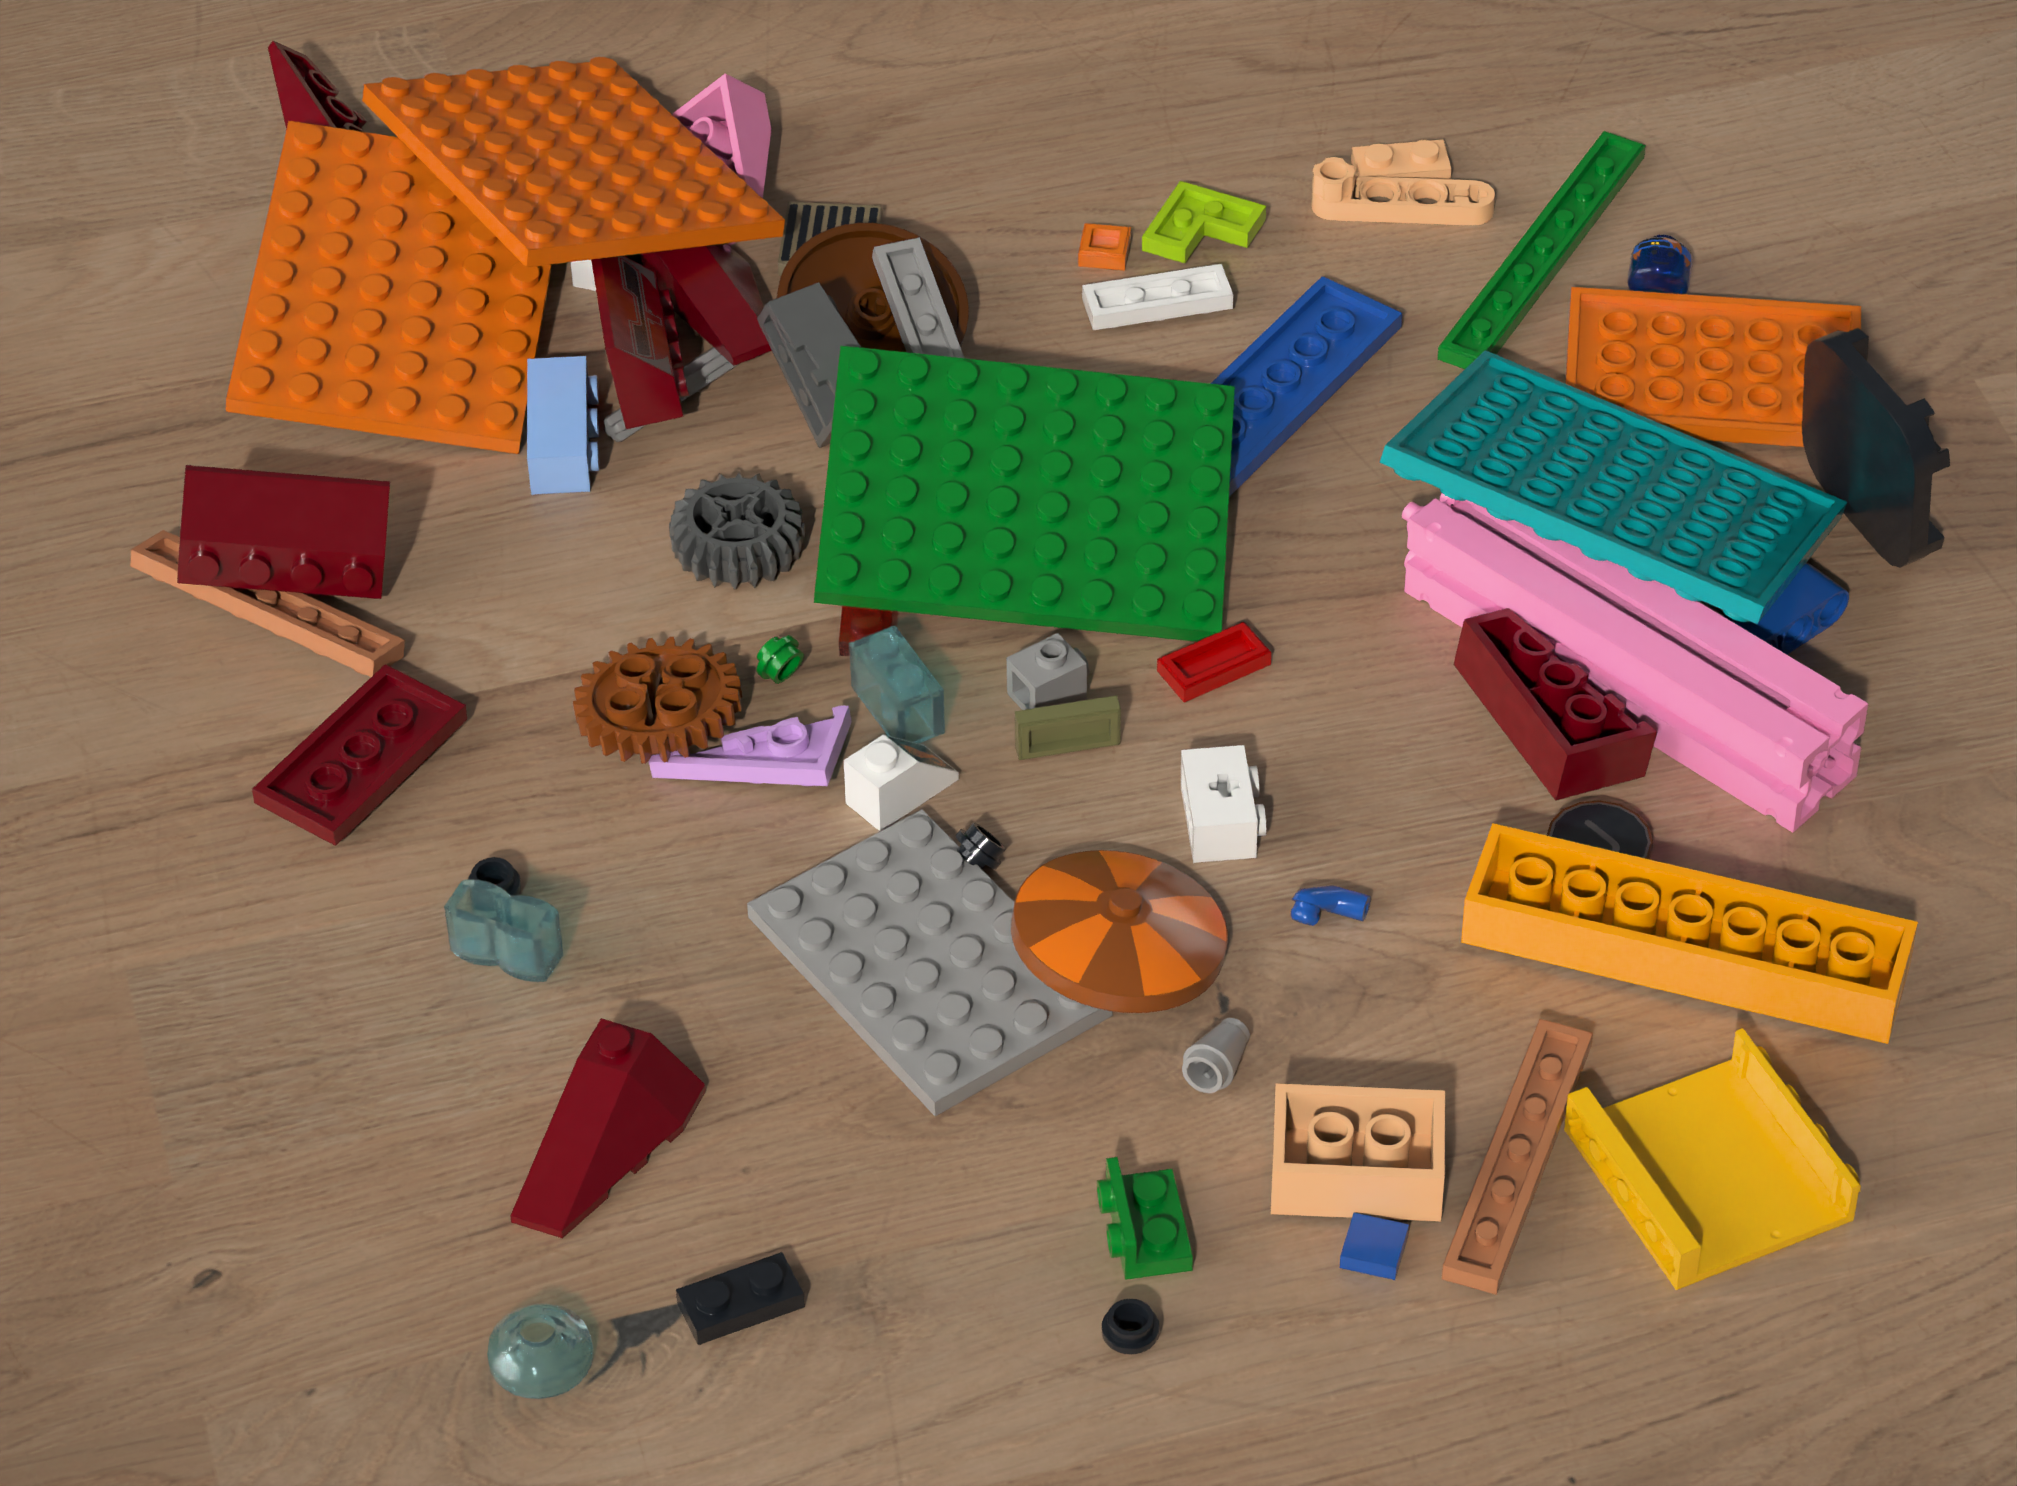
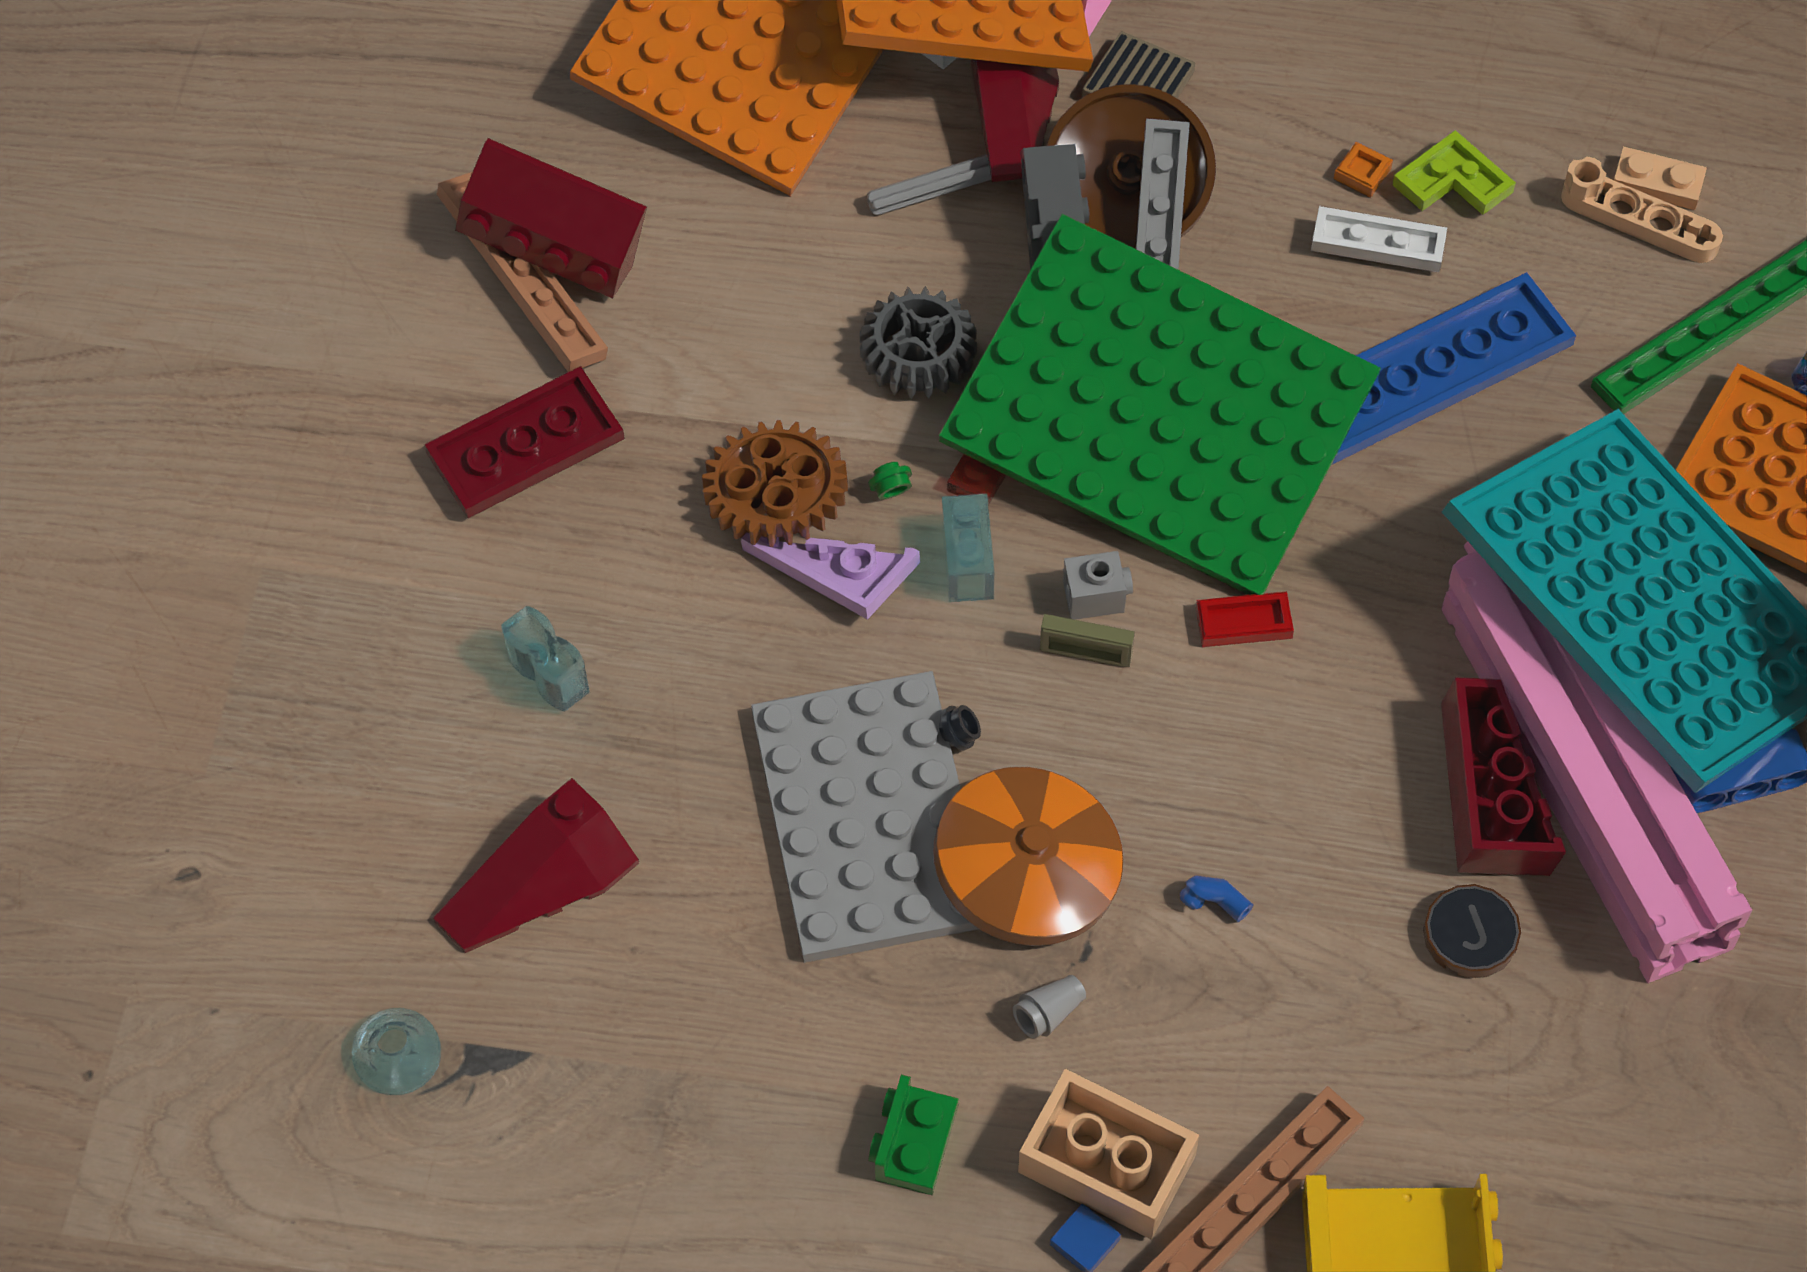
camera: 25 degrees right, 15 degrees up
(498, 872) = (563, 594): black plate -> none
(561, 425) = (829, 185): light blue brick -> none
(640, 341) = (919, 133): dark red slope -> none
(740, 1298) = (567, 1070): black plate -> none
(893, 779) = (927, 632): white slope -> none
(1130, 1315) = (846, 1219): black plate -> none
(1220, 803) = (1160, 785): white brick -> none
(1689, 932) = (1496, 1058): light orange brick -> none

